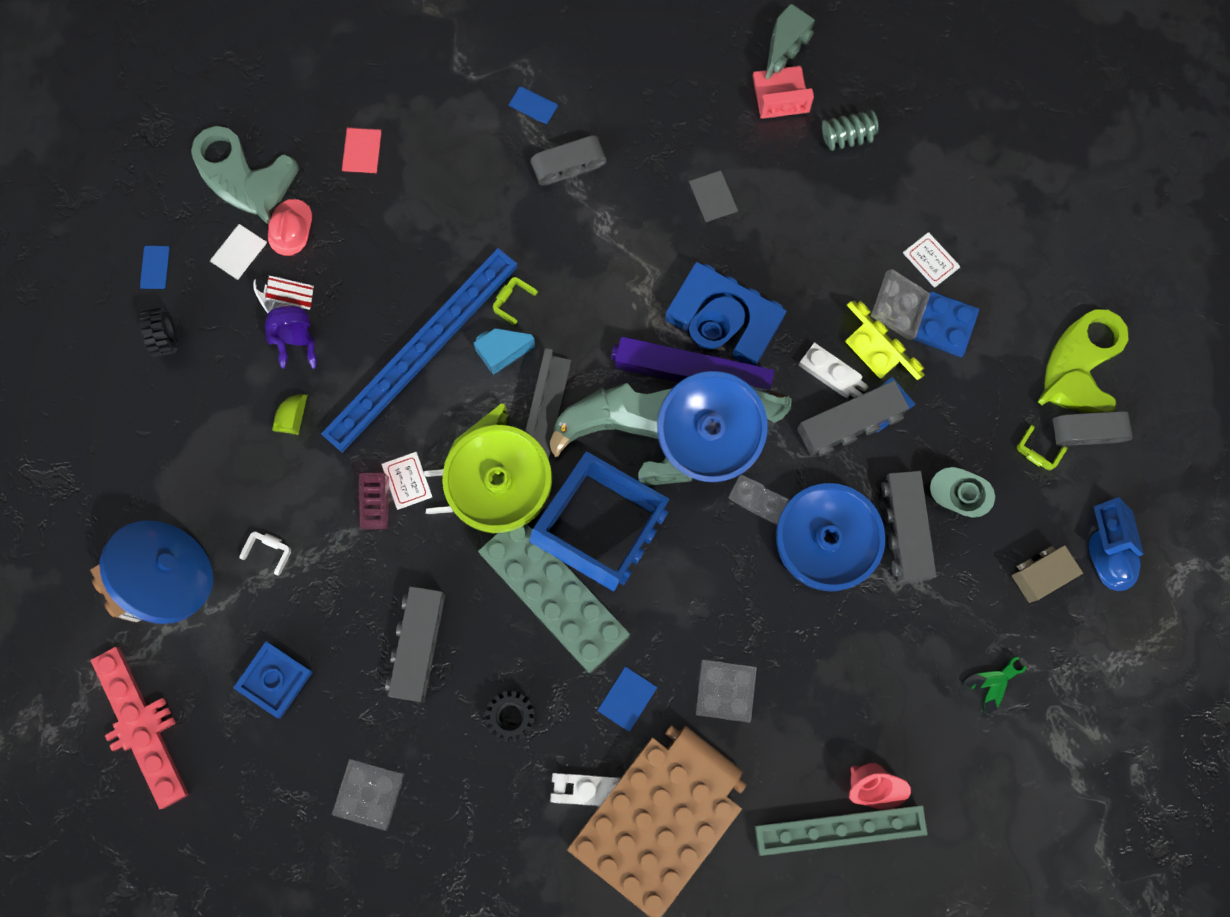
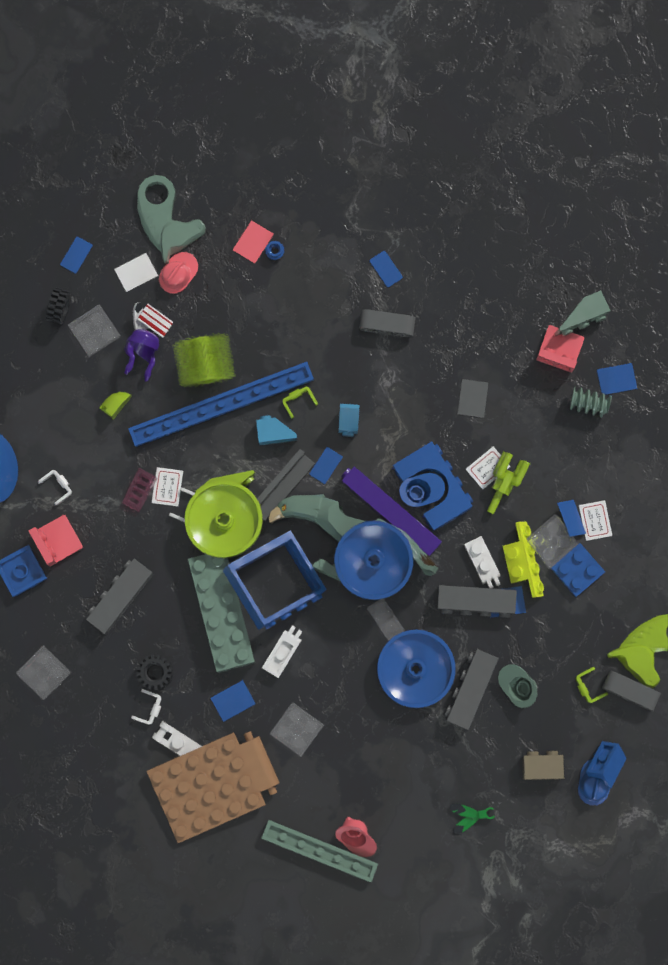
camera: 30 degrees right, 5 degrees up
(219, 341) = (94, 330): none -> clear plate
(299, 617) = (56, 540): none -> coral bracket
(372, 303) = (204, 360): none -> lime piece
(392, 139) = (274, 244): none -> blue plate
(536, 763) = (155, 710): none -> white piece
(584, 286) = (348, 419): none -> dark azure slope
(585, 357) = (325, 465): none -> blue sticker
(656, 605) = (282, 652): none -> white hinge
(775, 264) = (484, 466): none -> white sticker
(805, 262) = (506, 479): none -> lime plant
(862, 94) = (617, 379): none -> blue sticker
(906, 268) = (571, 518): none -> blue sticker

